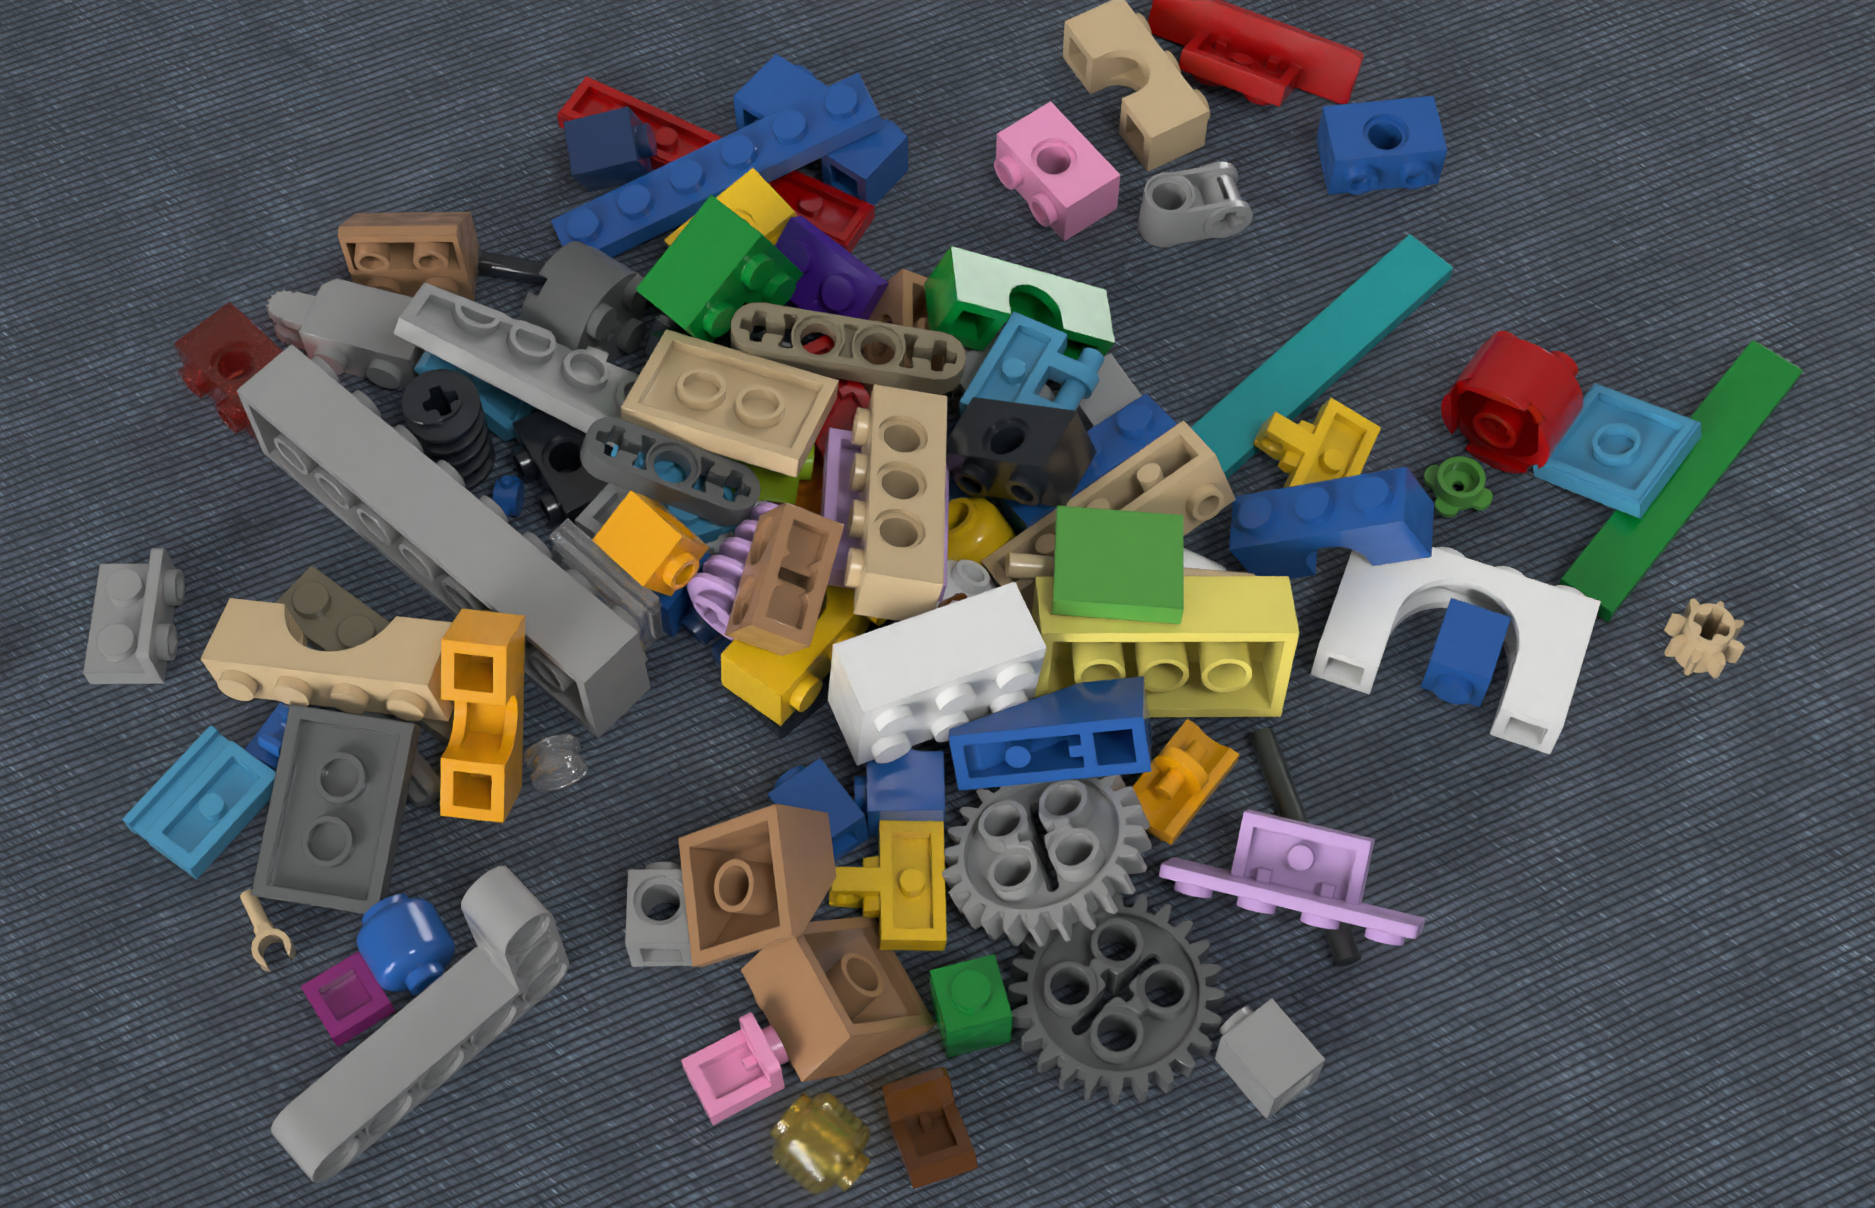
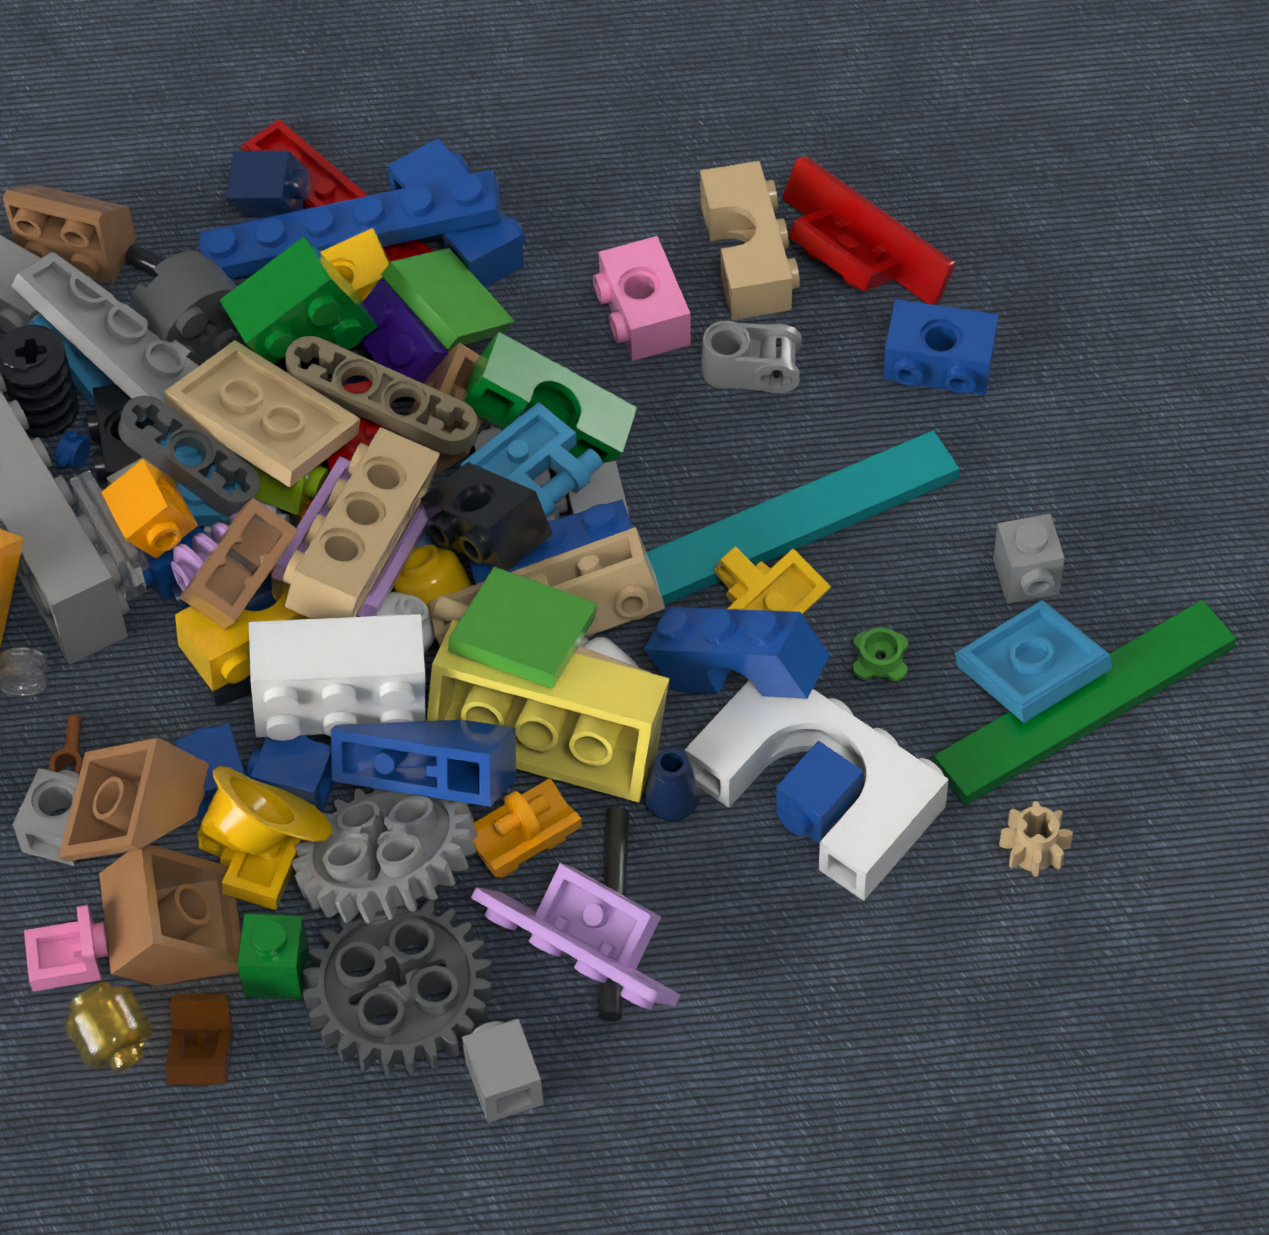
camera: 20 degrees right, 5 degrees down
(641, 833) = (70, 750): none -> dark orange hand
(860, 224) = (447, 298): none -> bright green tile
(902, 854) = (258, 816): none -> yellow piece
(1313, 690) = (672, 787): none -> dark blue cone
(1513, 402) = (949, 594): red brick -> none
(1576, 330) = (1028, 558): none -> light grey brick

